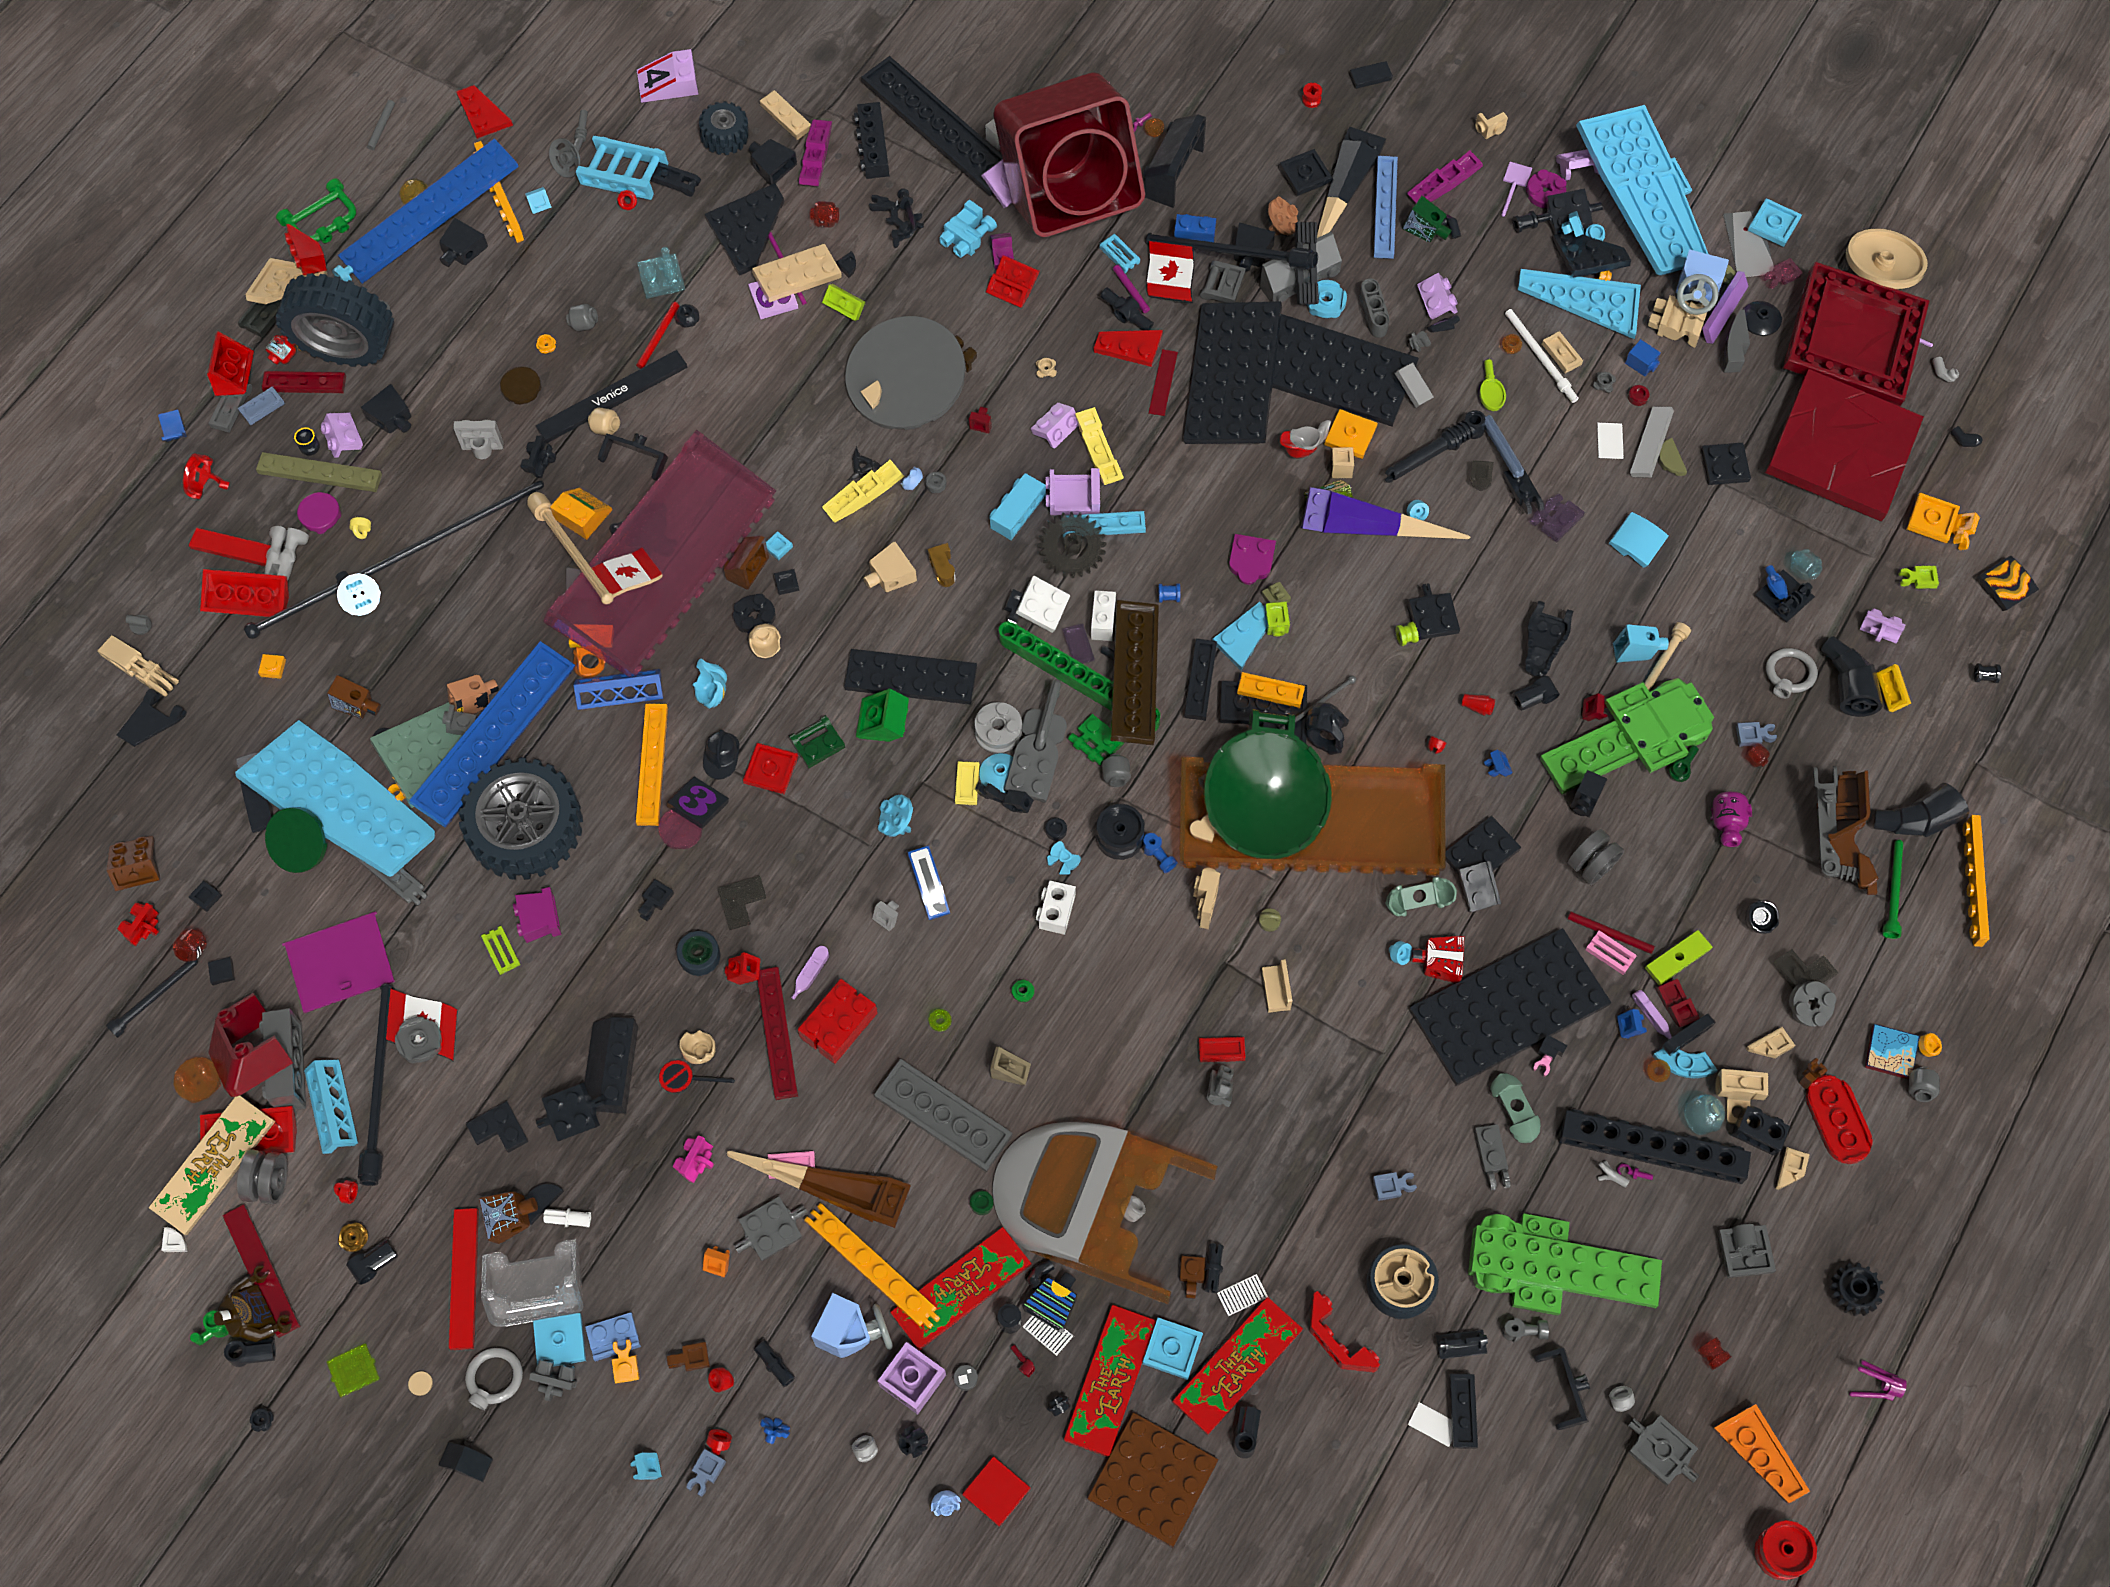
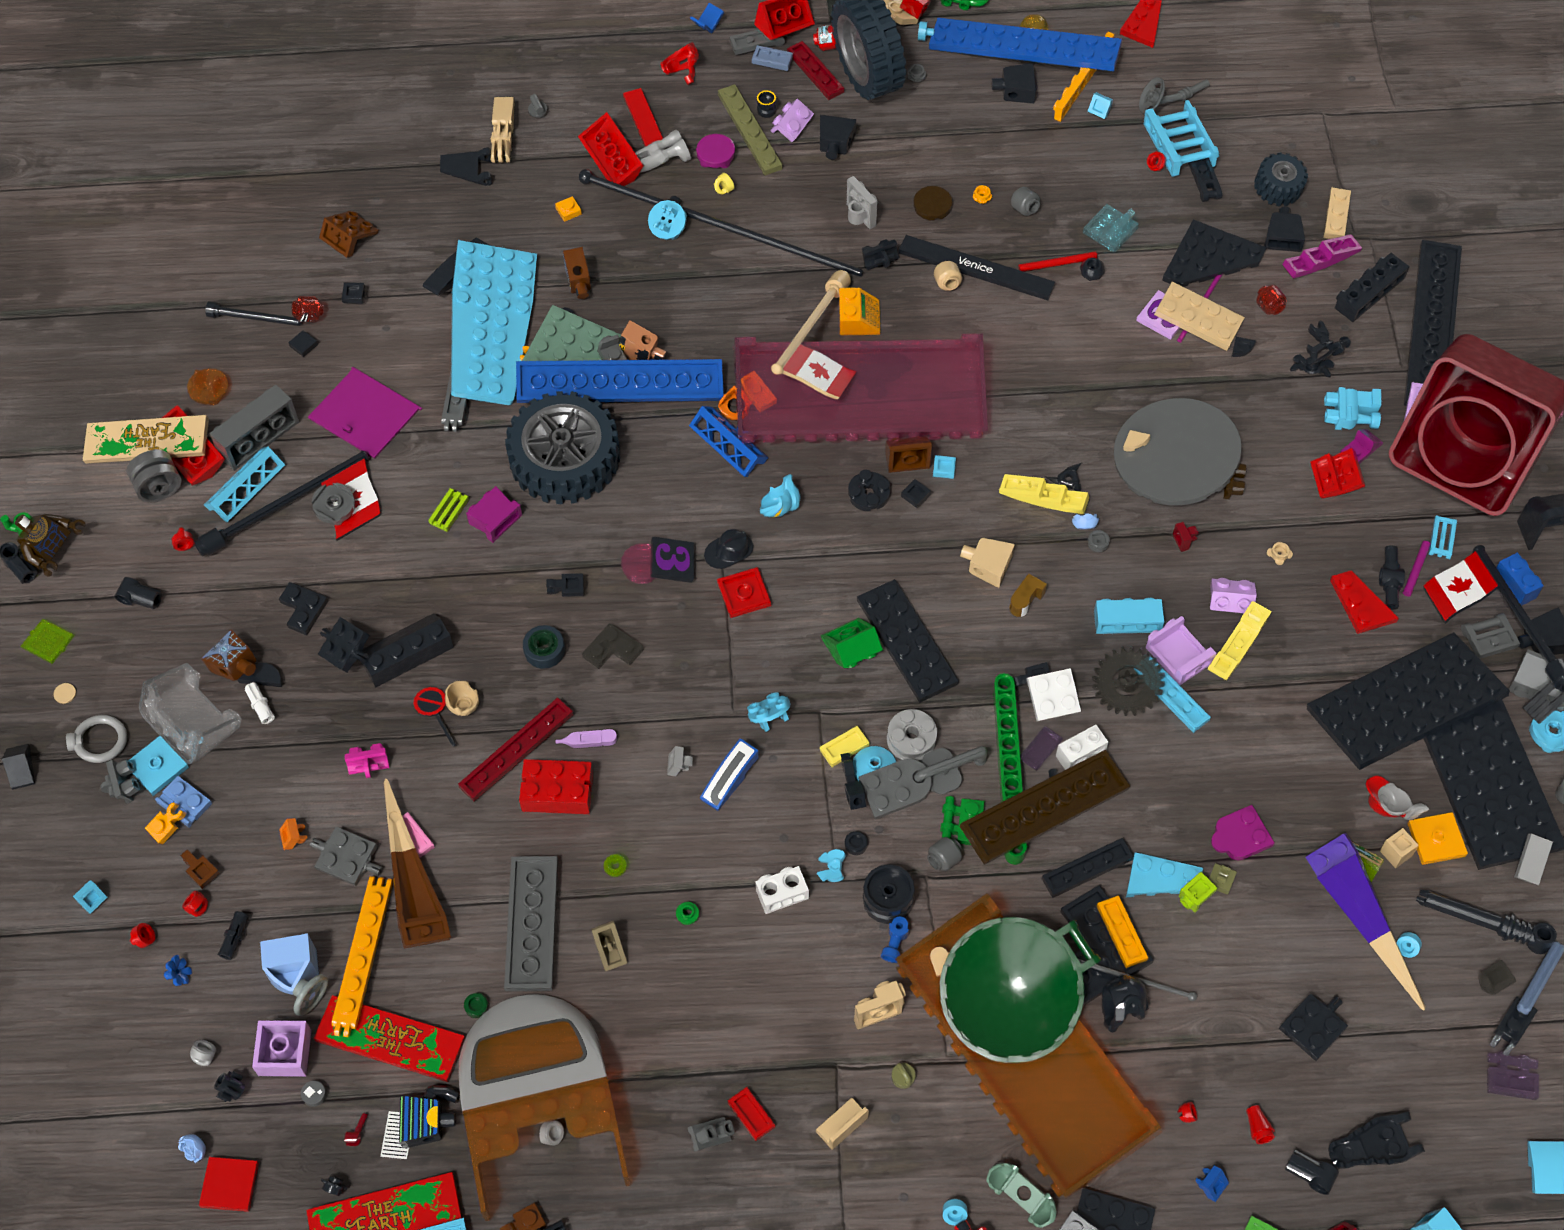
camera: 55 degrees right, 5 degrees down
(142, 924) = (302, 270): red hips -> none
(173, 1241) = (74, 457): white tile -> none
(244, 1065) = (227, 399): dark red windscreen -> none
(253, 1255) = (94, 518): dark red tile -> none
(295, 839) = (435, 315): dark green tile -> none
(346, 1234) = (149, 563): pearl gold plate -> none
(463, 1279) = (182, 653): red tile -> none
(636, 445) = (947, 310): black piece -> none
(652, 765) = (680, 506): light orange plate -> none
(668, 77) = (1292, 115): lavender slope -> none
(707, 1469) = (114, 943): sand blue plate -> none
(737, 969) = (550, 682): red brick -> none
(764, 640) = (848, 511): tan hair -> none
(820, 747) = (792, 616): dark green plate -> none
(843, 302) = (1203, 365): lime plate -> none
(1009, 1318) = (384, 1093): black brick -> none
(1163, 382) = (1350, 653): dark red sticker -> none
(1169, 592) = (1148, 787): blue bush -> none
(1407, 634) = (1276, 1014): lime wheel -> none

